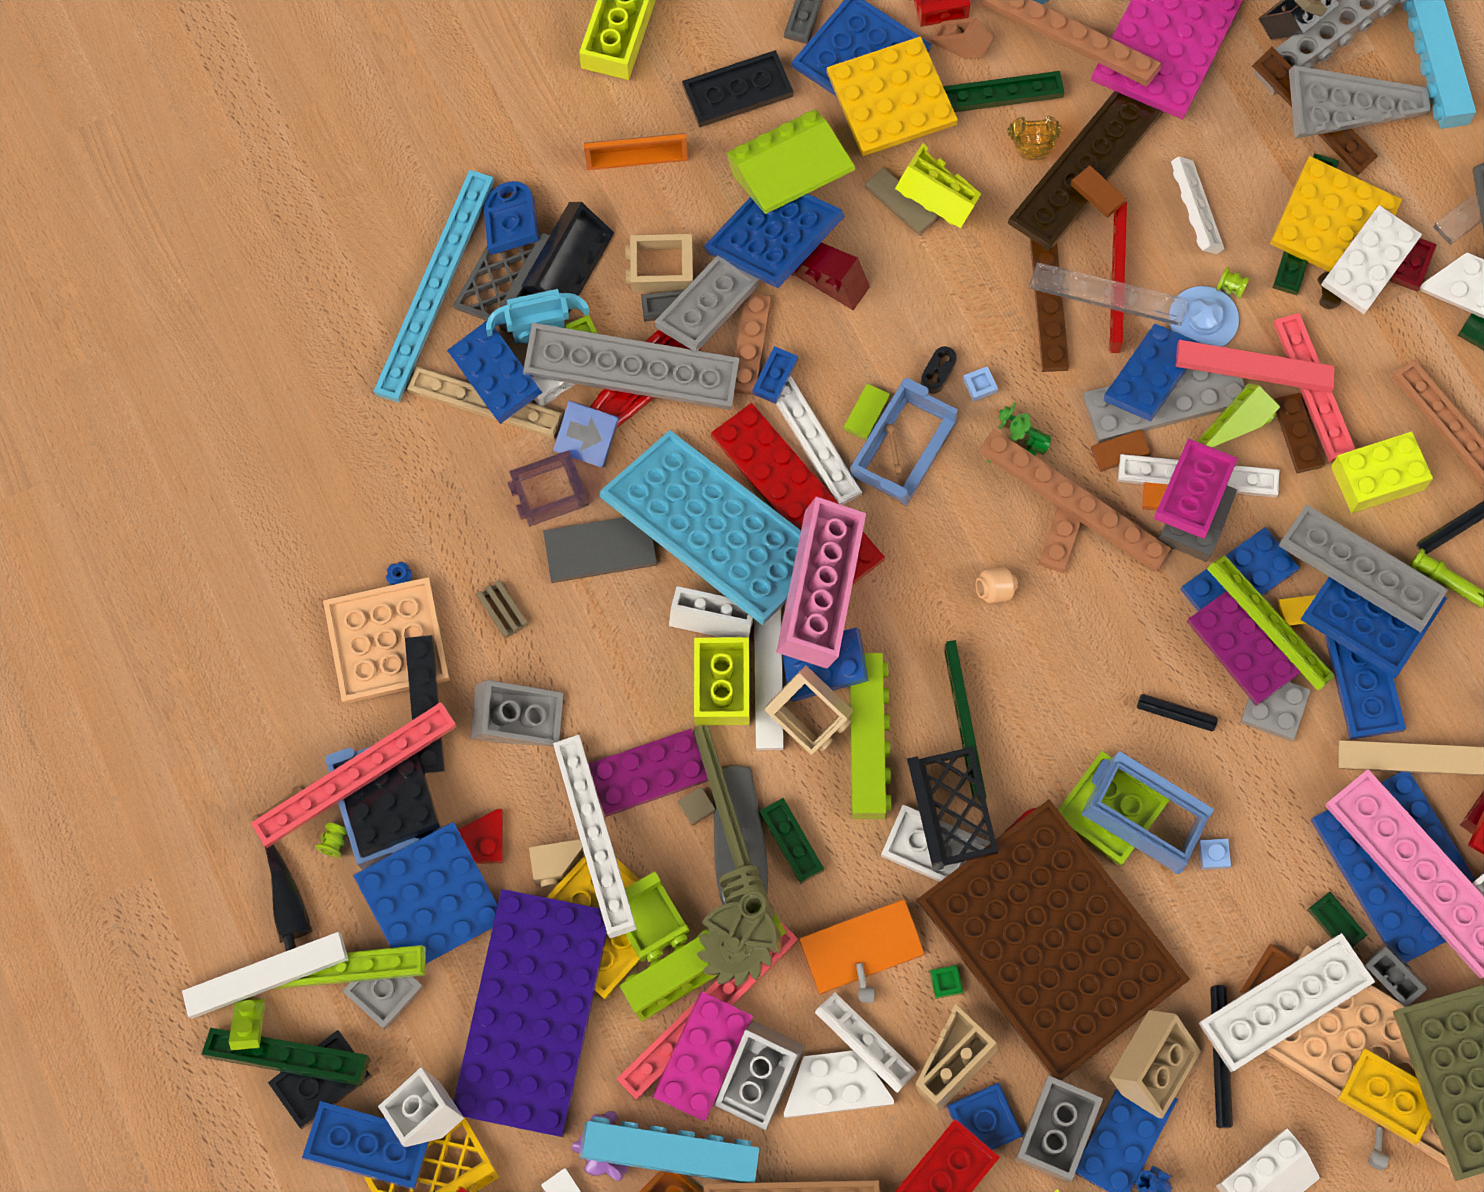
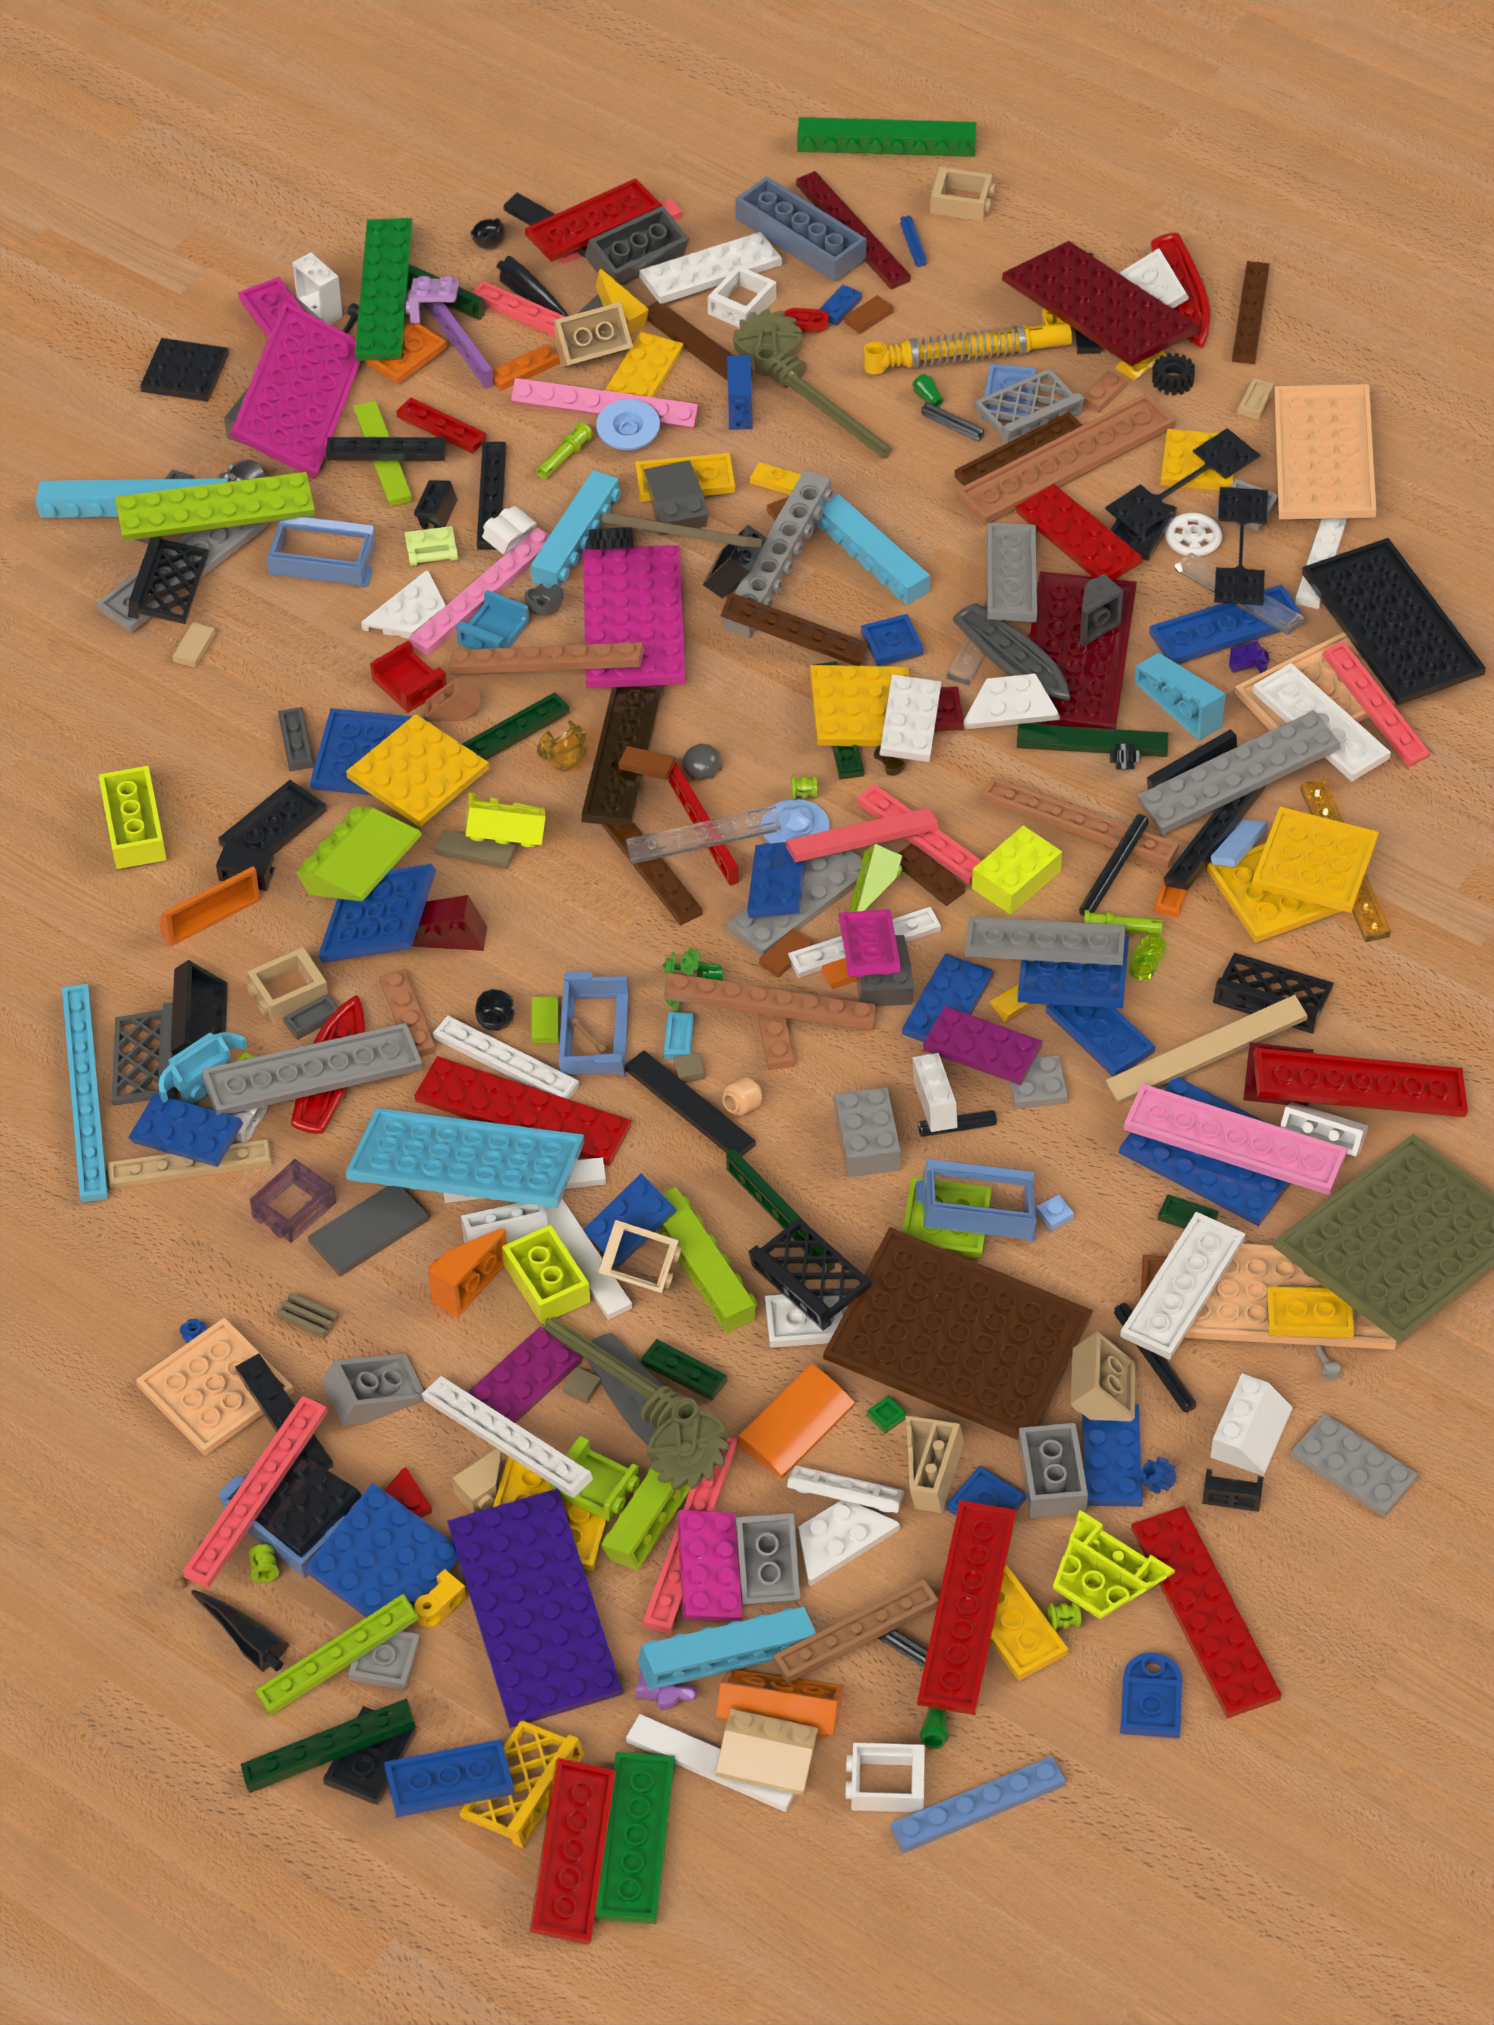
camera: 30 degrees left, 20 degrees down
(247, 1024) = (275, 1740): lime plate -> none
(265, 975) = (267, 1695): white tile -> none
(420, 1110) = (482, 1721): white slope -> none
(459, 960) = (440, 1601): none -> yellow leg
(510, 220) = (126, 1009): blue tile -> none
(586, 433) = (302, 1139): tile -> none
(651, 644) = (466, 1271): none -> orange slope
(687, 118) = (238, 859): none -> black hinge
(706, 303) = (350, 994): light grey plate -> none
(775, 375) = (446, 1022): blue plate -> none
(821, 583) = (591, 1149): bright pink brick -> none
(825, 382) = (494, 1010): none -> black hair
(865, 994) = (821, 1455): light grey hand -> none
(943, 372) = (593, 960): black beam -> none
(946, 567) = (689, 1104): none -> black tile
(967, 527) = (689, 1067): none -> dark tan tile
(976, 489) = (678, 1034): none -> medium azure tile
(980, 384) = (632, 954): light blue plate -> none
(1088, 682) = (867, 1132): none -> light grey brick
(1154, 209) = (702, 761): none -> dark grey hair
(1170, 675) = (934, 1092): none -> white brick
(1197, 205) = (731, 739): white plate -> none
(1271, 622) = (994, 1015): lime tile -> none
(1341, 101) = (816, 610): light grey wing -> none
(1396, 974) = (1259, 1223): dark grey brick -> none
(1403, 162) = (892, 640): none -> blue plate
(1455, 625) = (1150, 953): none -> clear neon green plate

